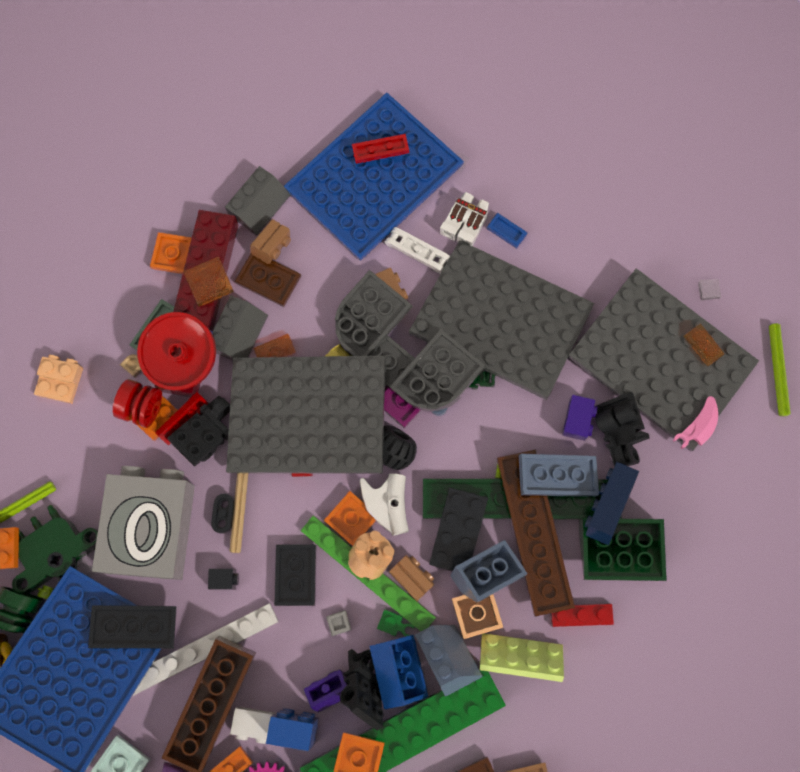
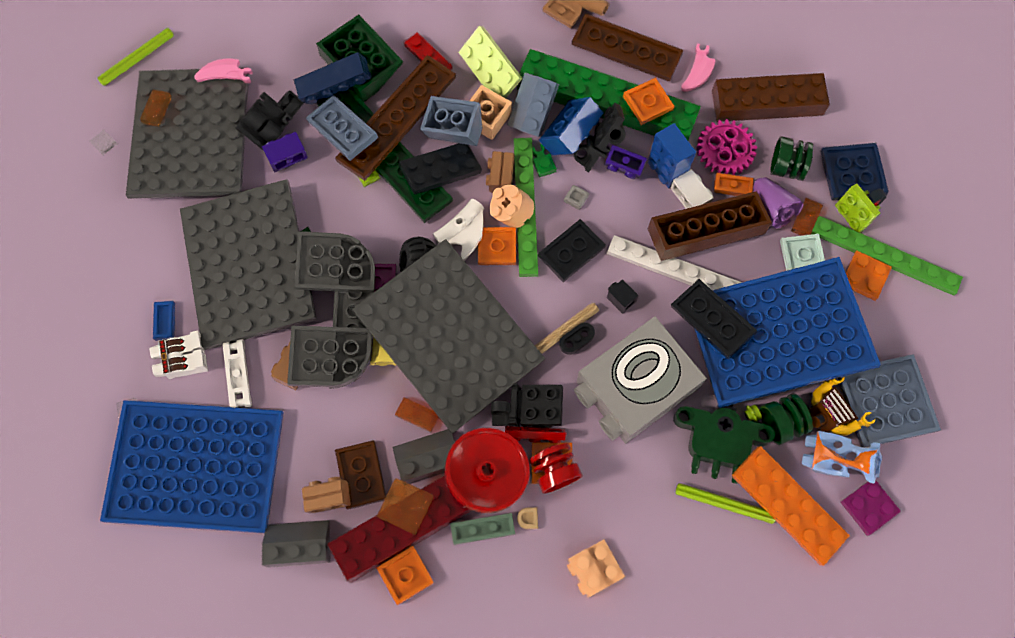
camera: 135 degrees left, 5 degrees down
(380, 148) = (163, 475): red plate -> none

